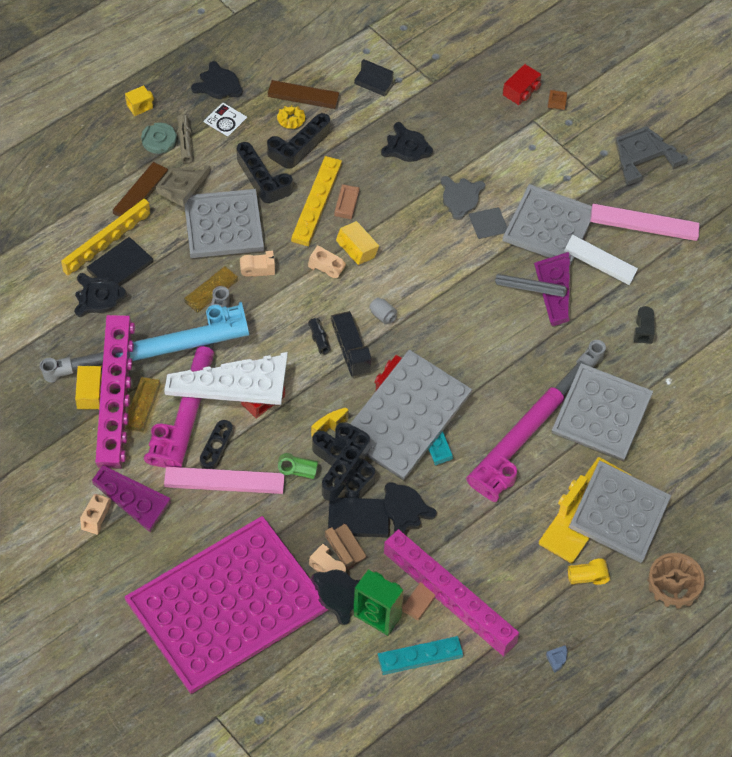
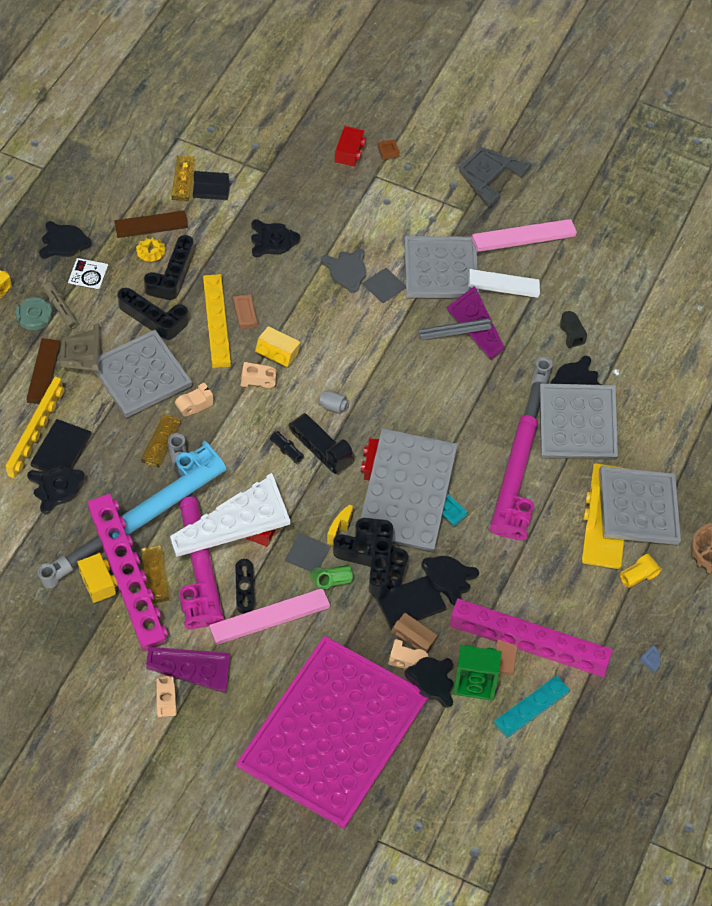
camera: 25 degrees left, 0 degrees up
(289, 437) = (307, 553): none -> dark grey sticker
(352, 63) = (183, 178): none -> clear yellow plate
(627, 368) = (576, 373): none -> black tile

